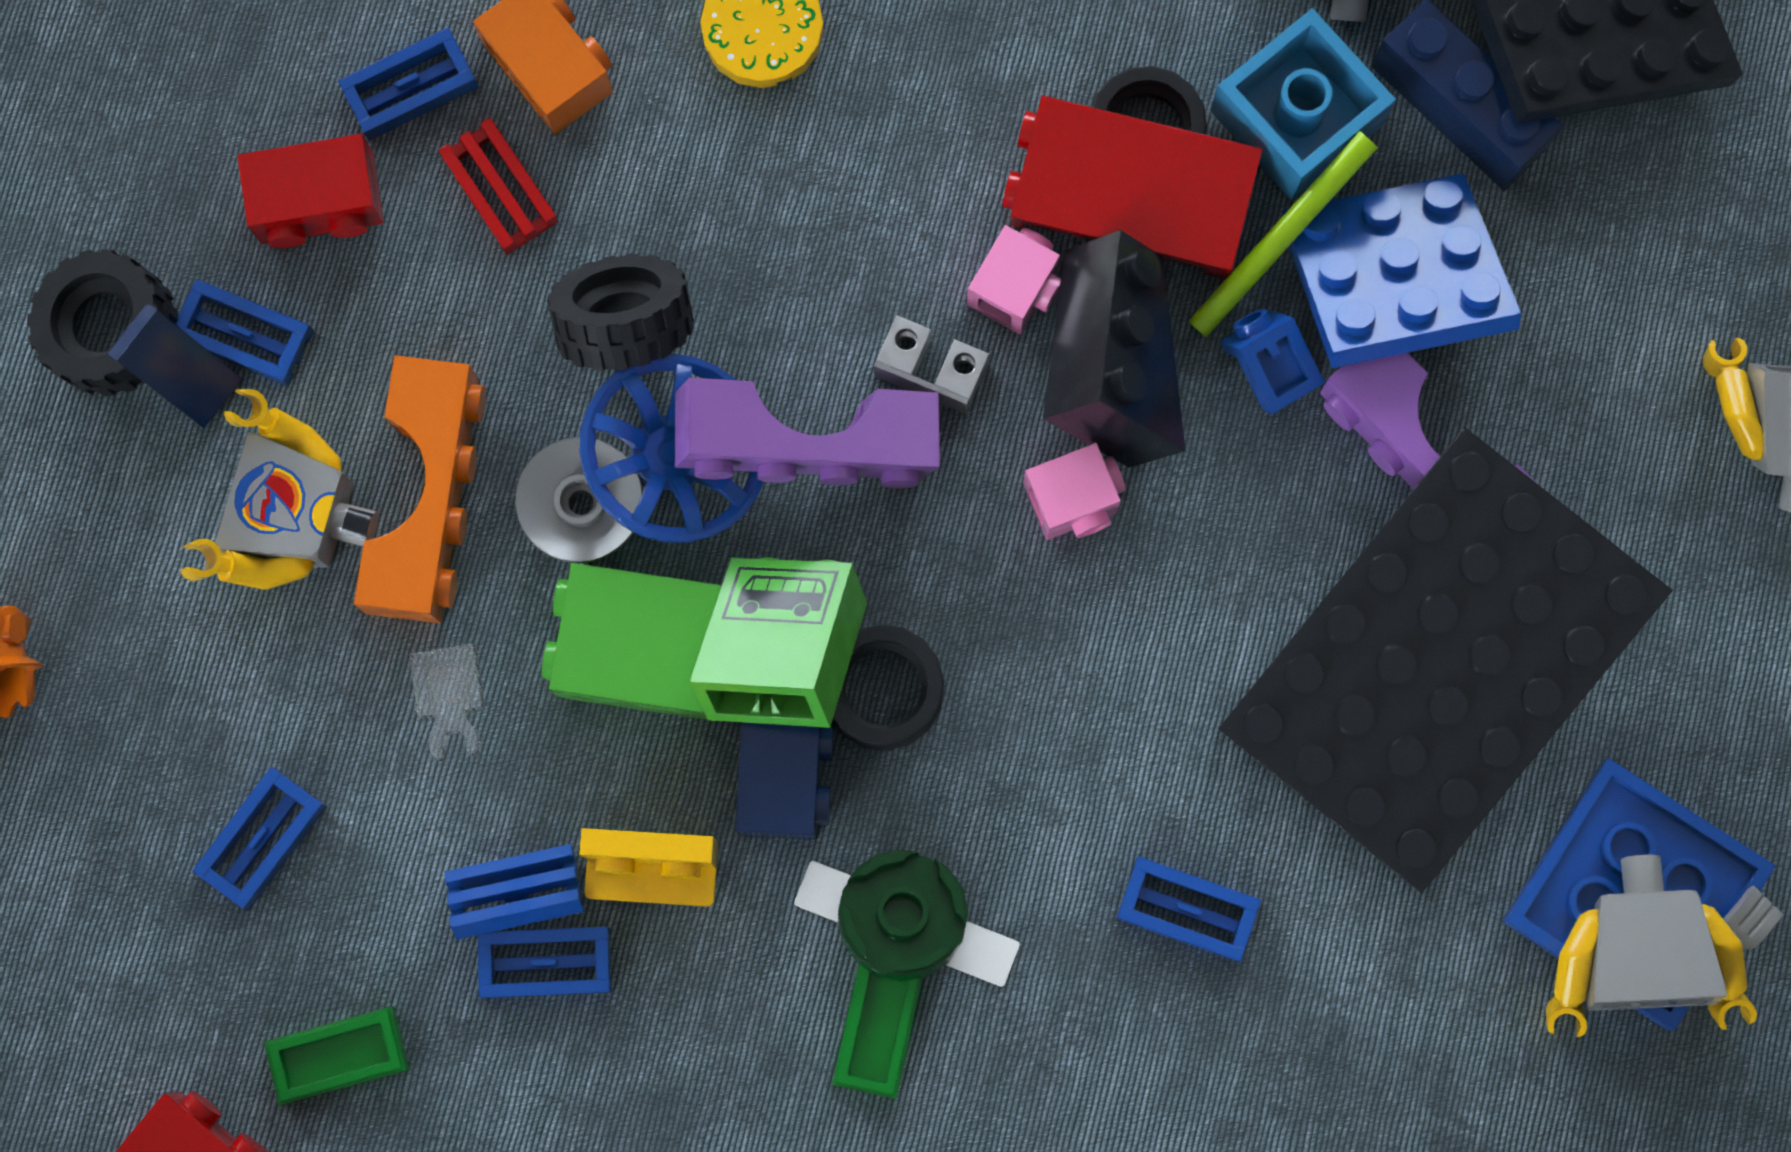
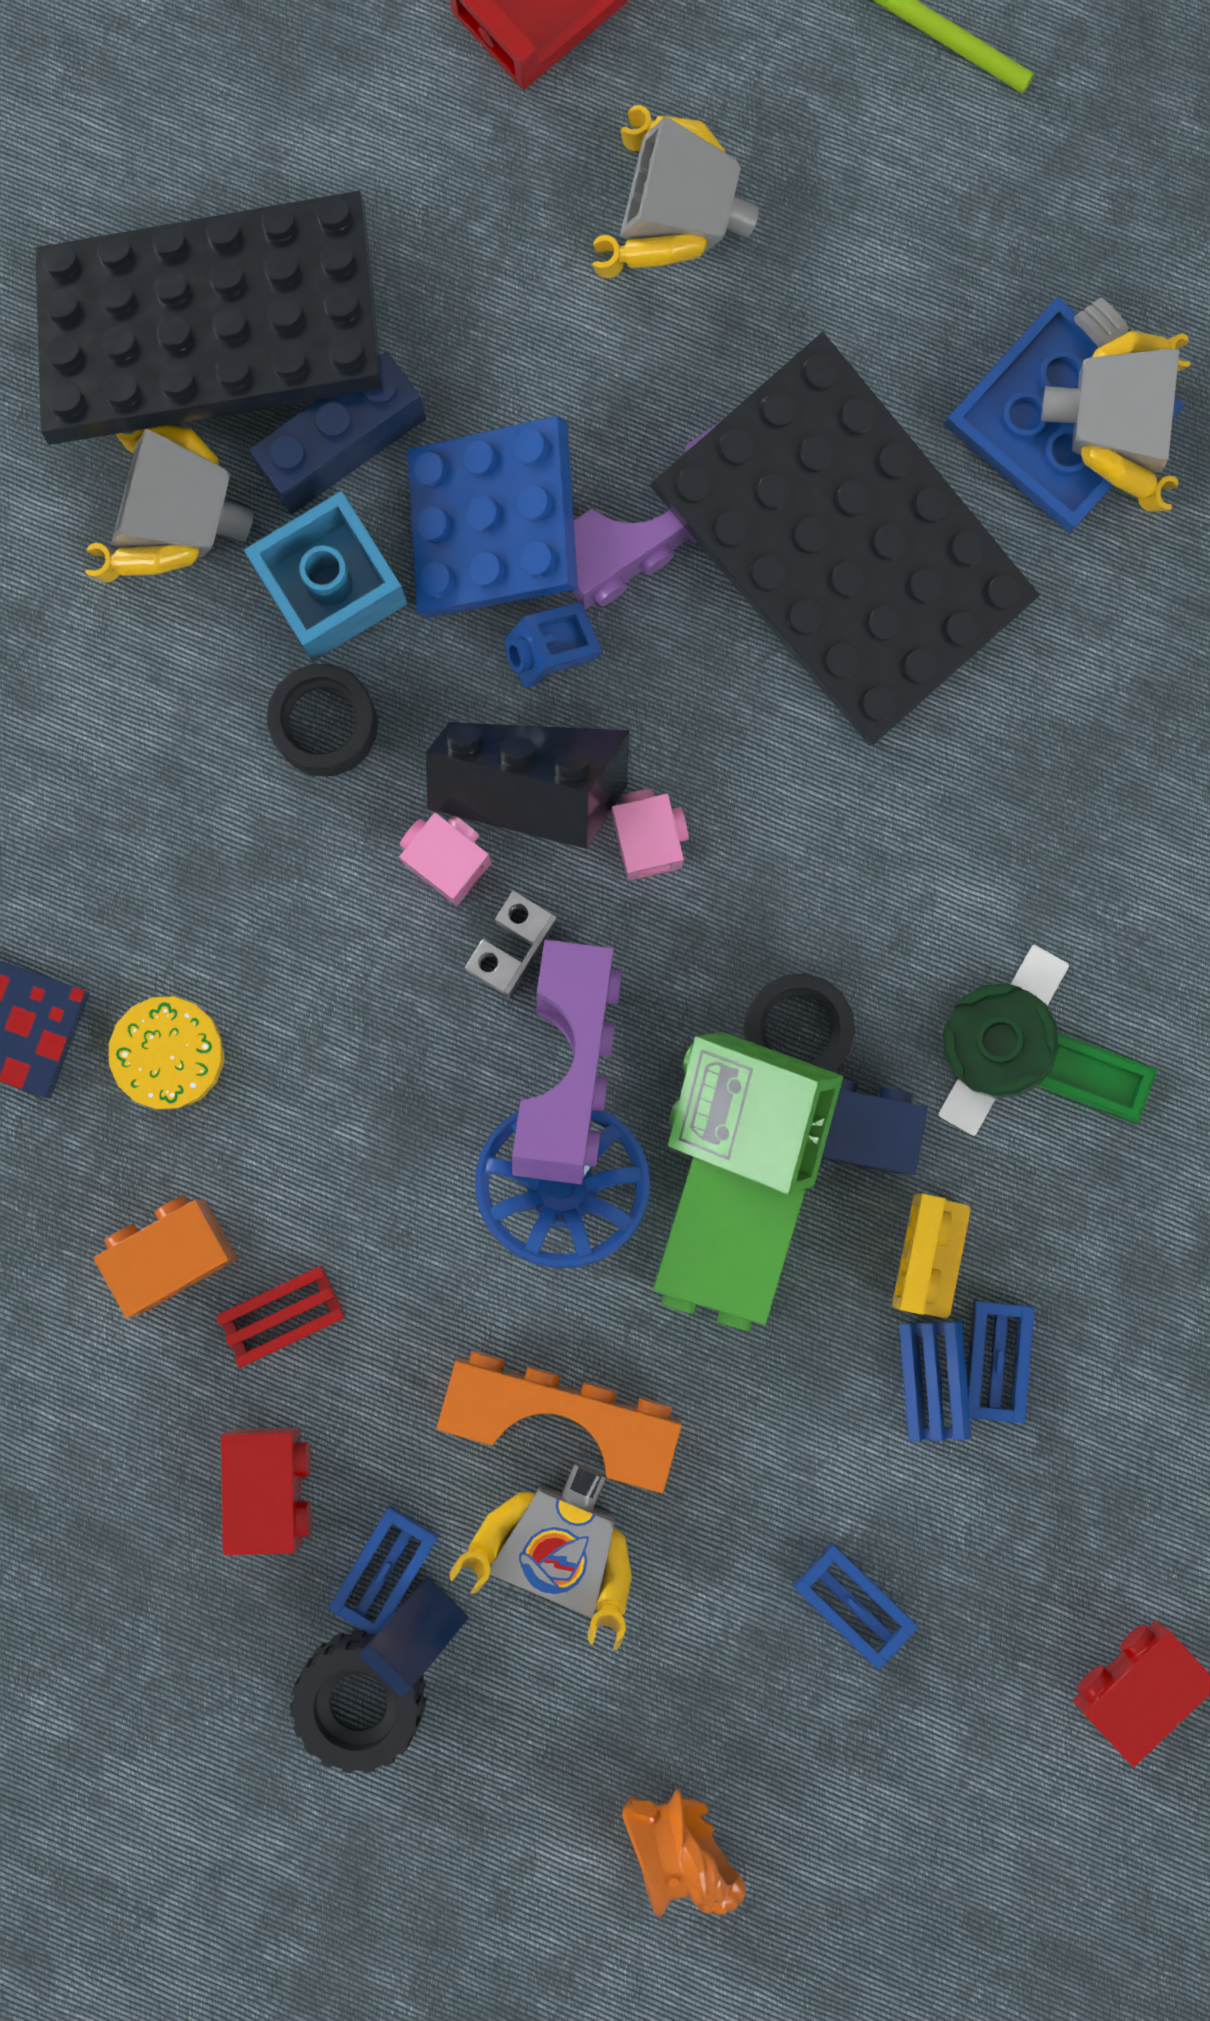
camera: 80 degrees left, 5 degrees up
(336, 1056) = (1057, 1557): green tile -> none
(418, 104) = (147, 1397): blue tile -> none
(447, 688) = (743, 1418): clear plate -> none
(546, 497) = (595, 1309): light grey dish -> none
(589, 316) = (459, 1215): black tyre -> none
(1116, 172) = (376, 739): red panel -> none
(1195, 884) = (1002, 837): blue tile -> none
(1283, 234) = (443, 613): lime piece -> none

